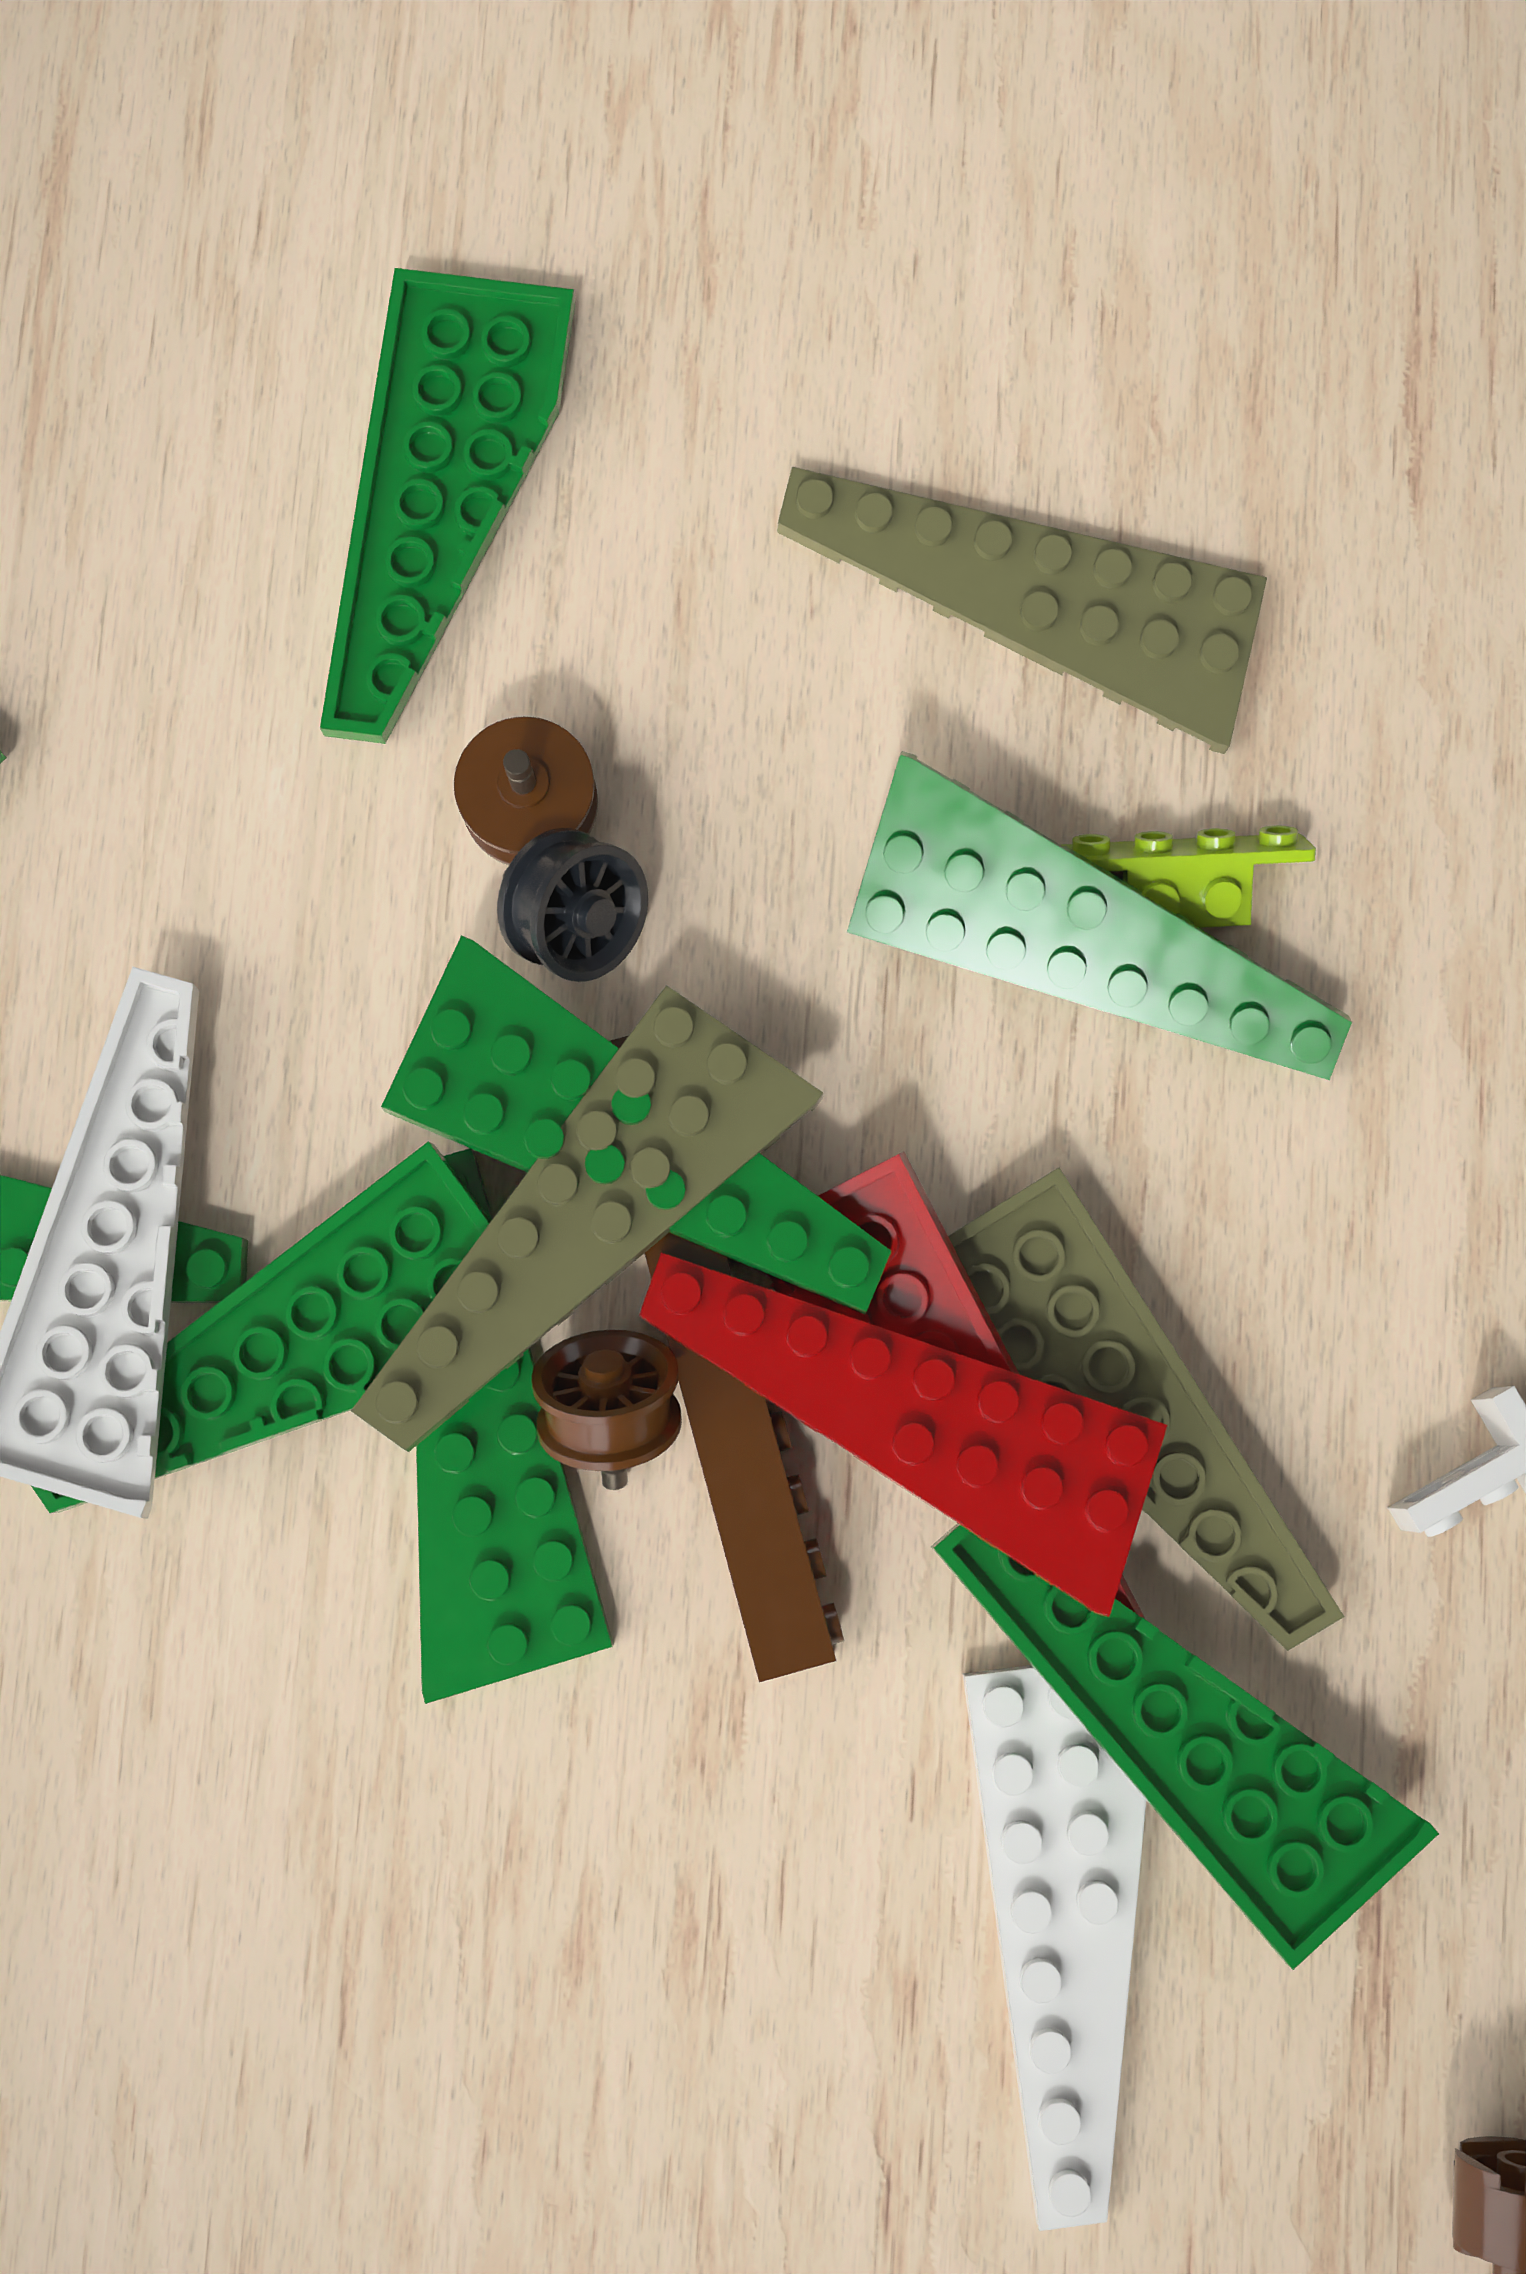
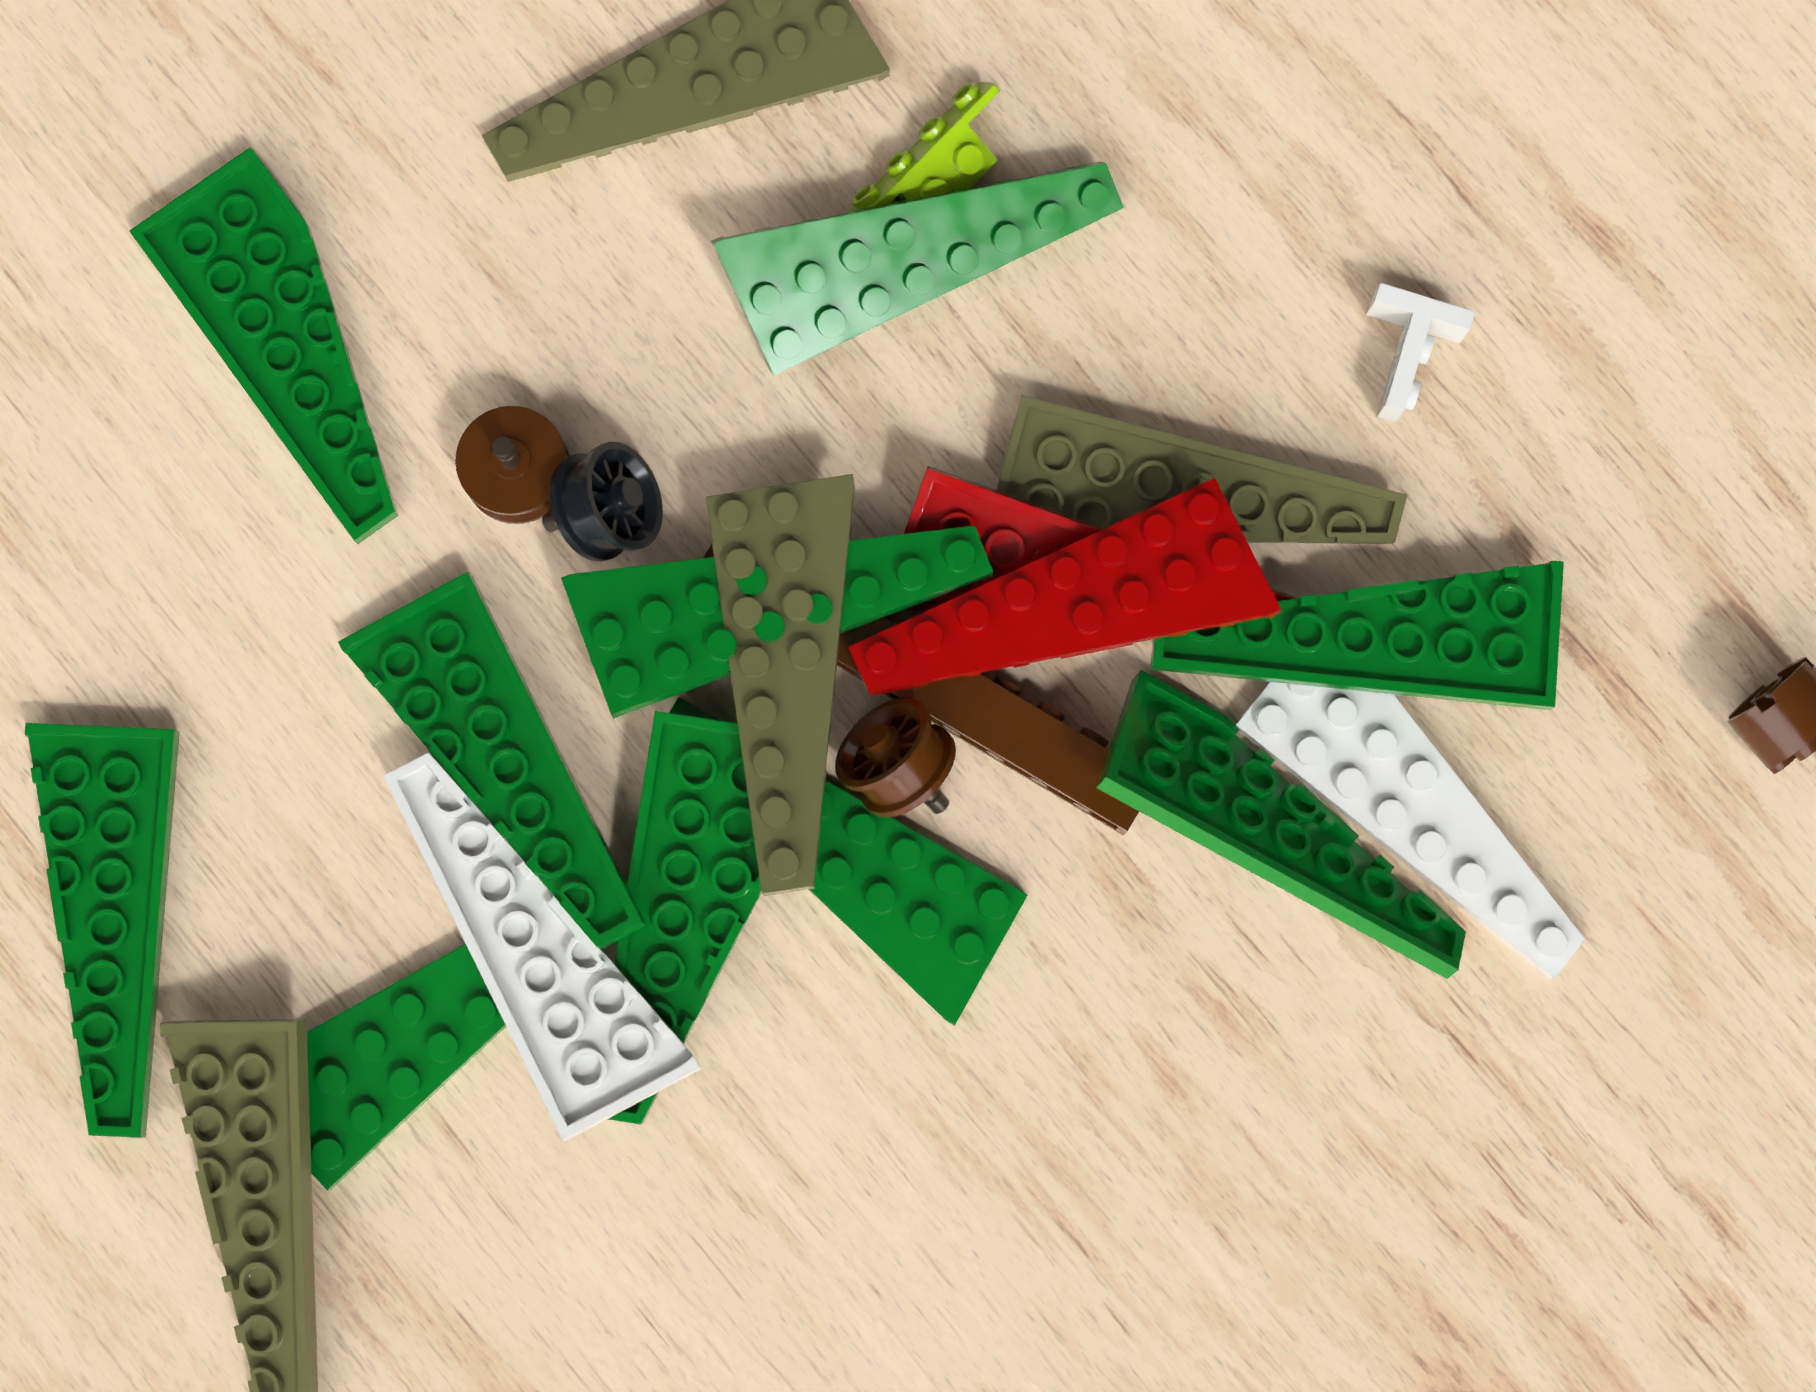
camera: 45 degrees left, 0 degrees up
(272, 985) = (470, 706): none -> green wing
(879, 1718) = (1207, 784): none -> green wing

